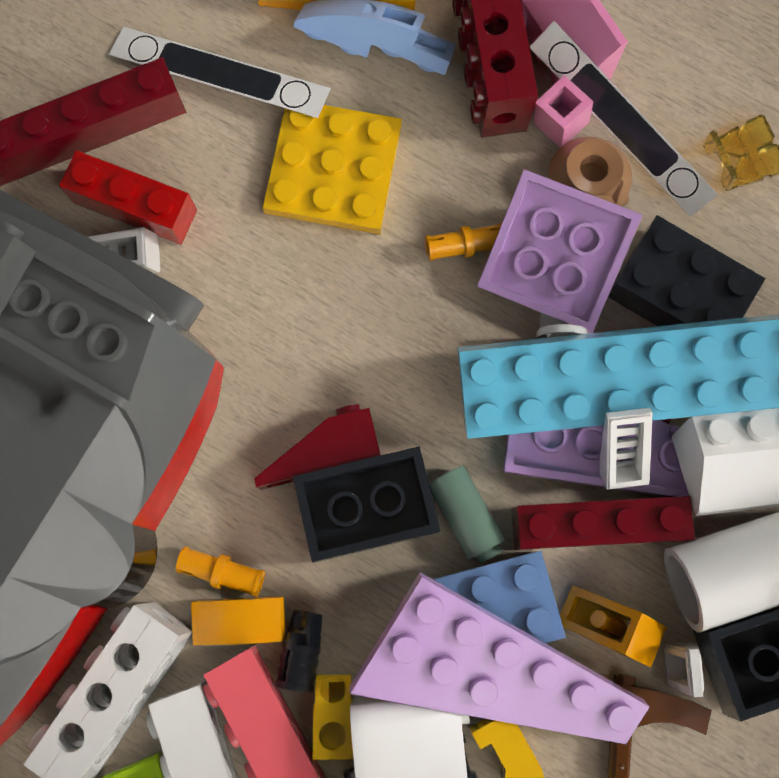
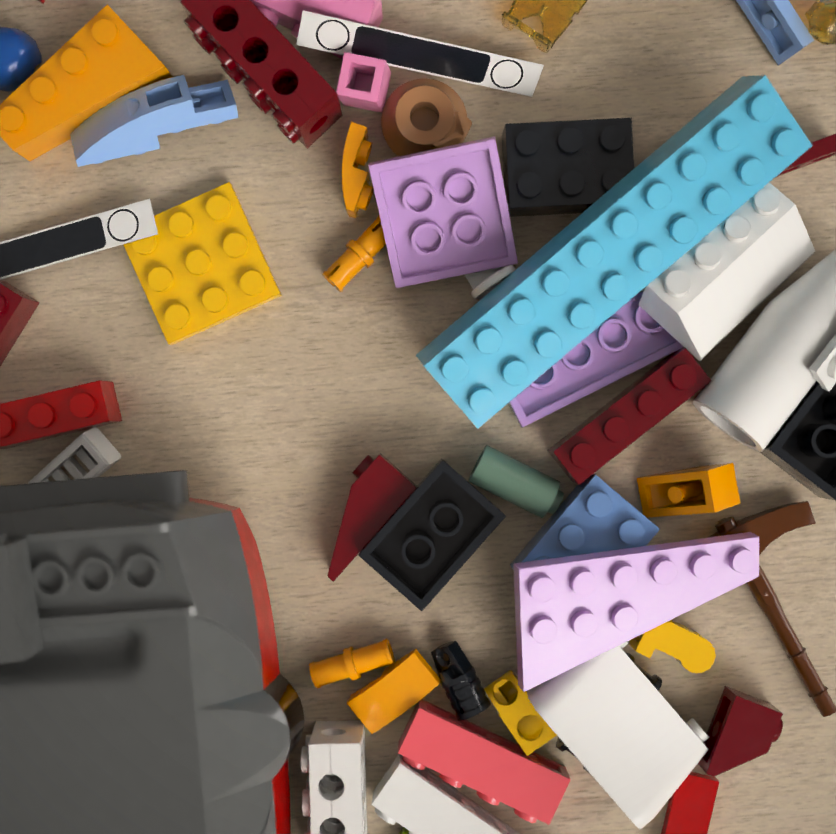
camera: 30 degrees left, 10 degrees up
(503, 181) = (355, 181): none -> light orange slope
(629, 472) = (610, 347): white slope -> none
(684, 668) = (767, 484): white slope -> none

